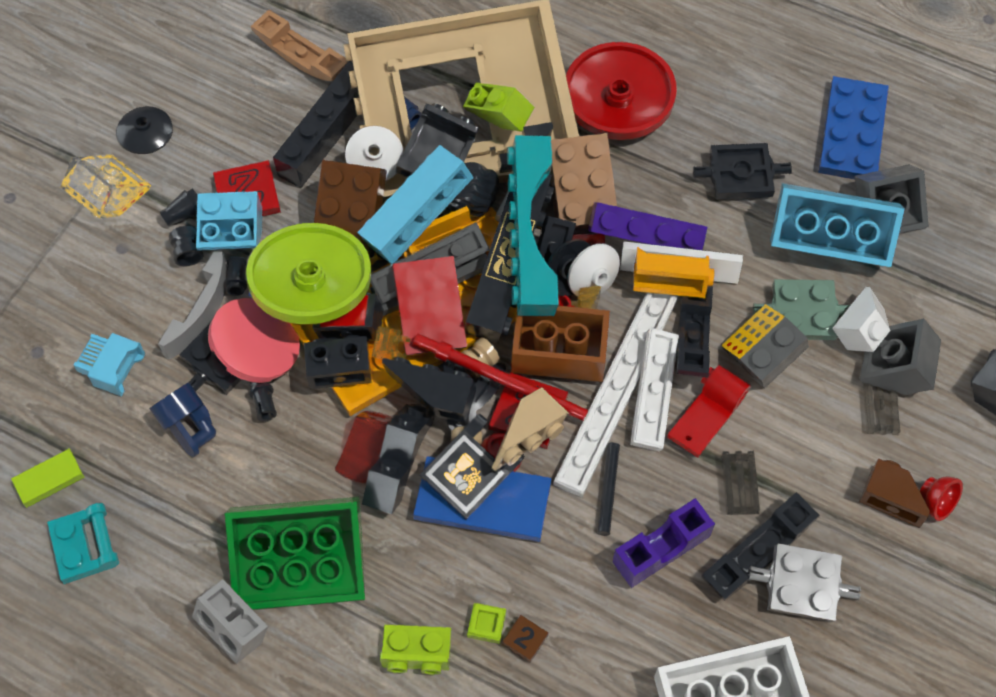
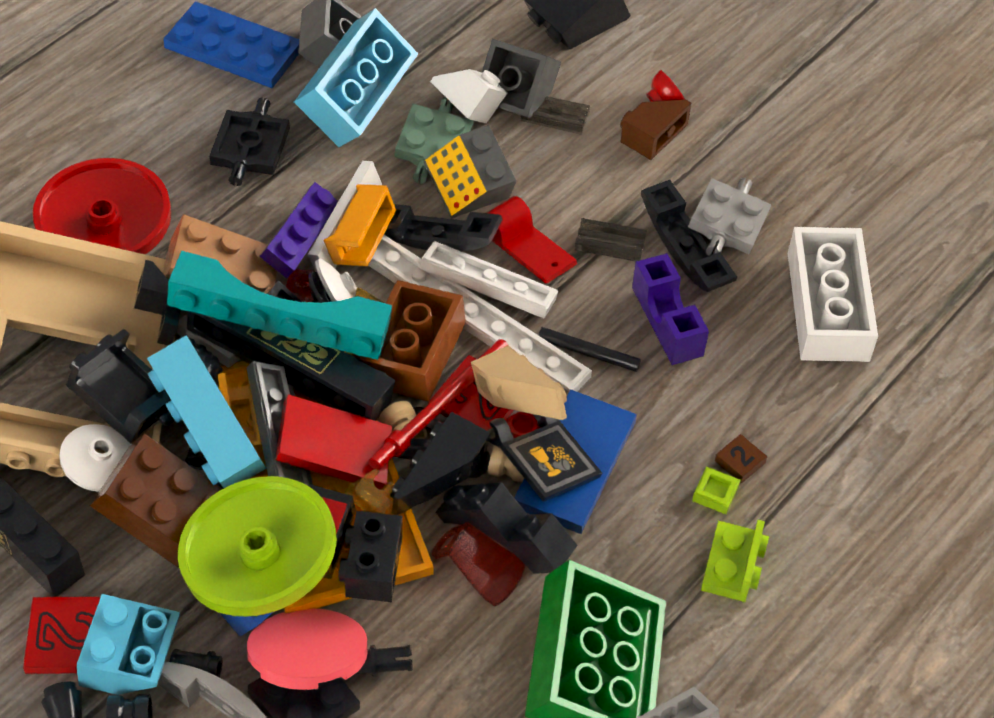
camera: 80 degrees left, 10 degrees down
(499, 105) = (95, 308): lime slope -> none

